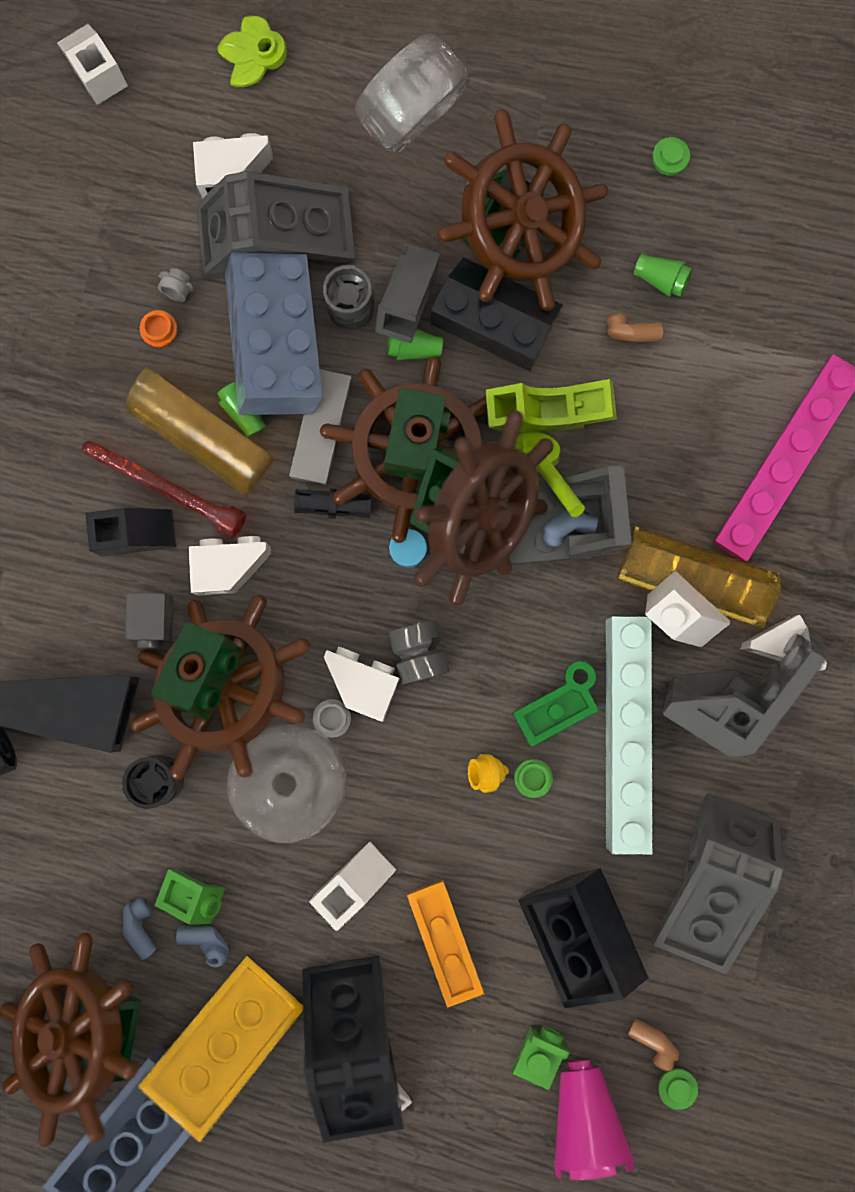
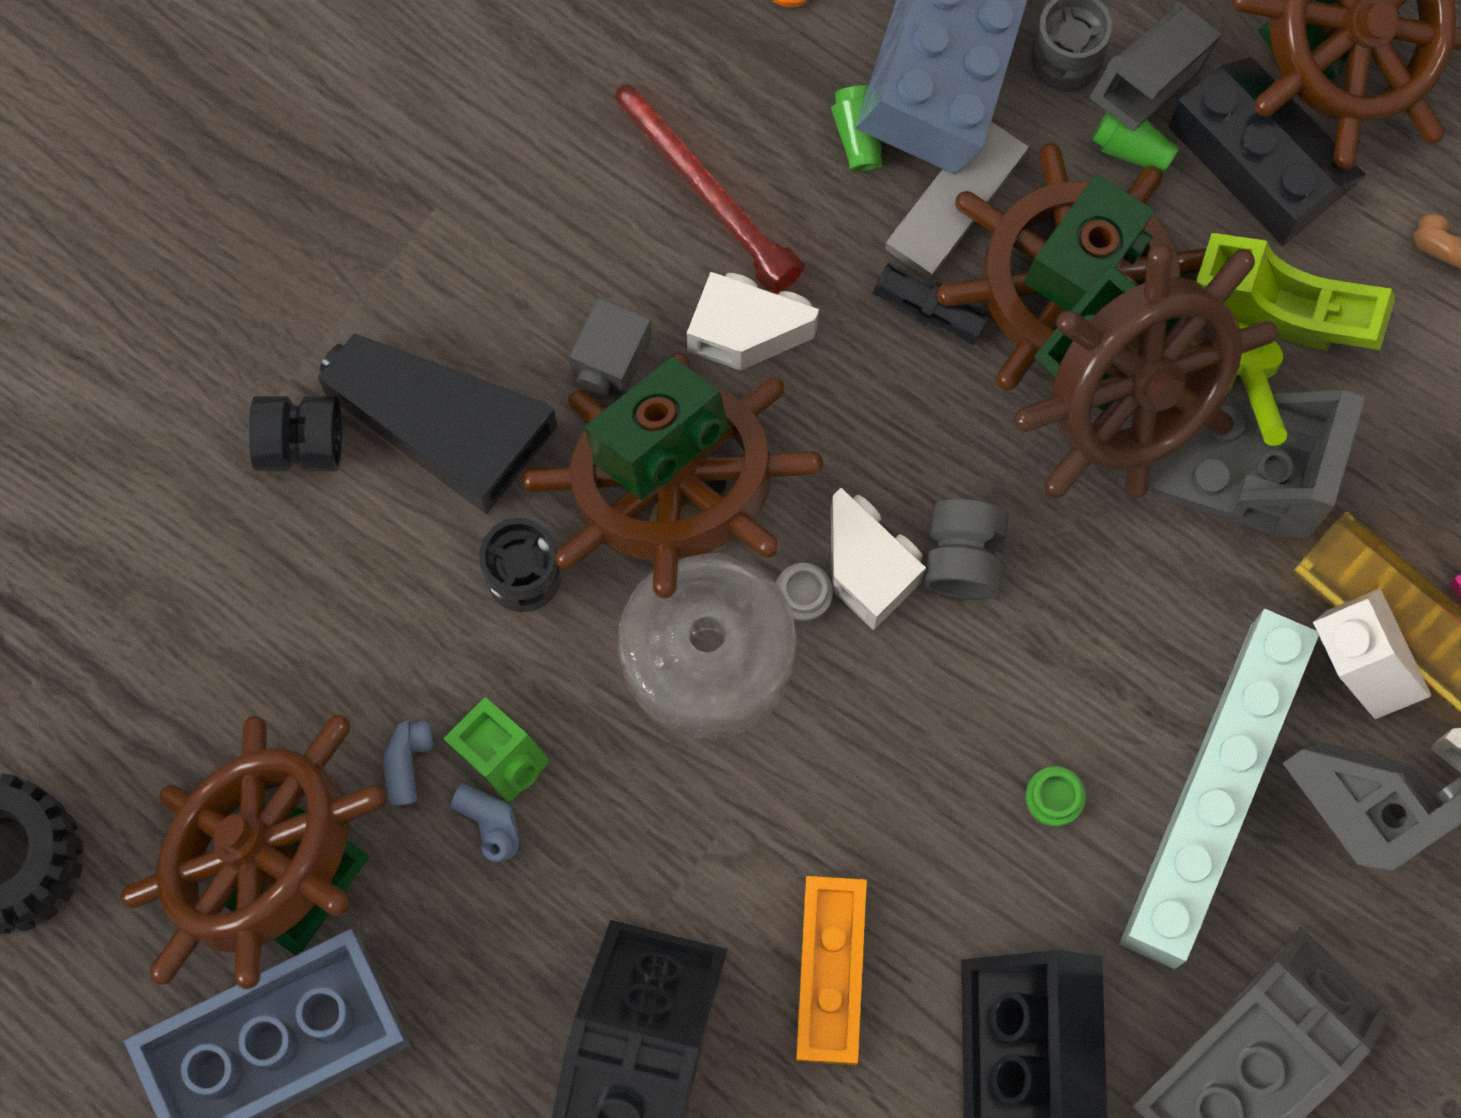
camera: 20 degrees right, 10 degrees down
(130, 530) = (637, 221): black slope -> none
(197, 432) = (786, 133): clear yellow brick -> none
(221, 1048) = (455, 966): yellow tile -> none
(352, 886) = (735, 827): white slope -> none
(410, 552) = (1001, 405): medium azure piece -> none
(486, 773) = (991, 758): yellow plate -> none
(558, 708) = (1133, 712): green hinge -> none
(564, 524) = (1247, 459): sand blue arm -> none

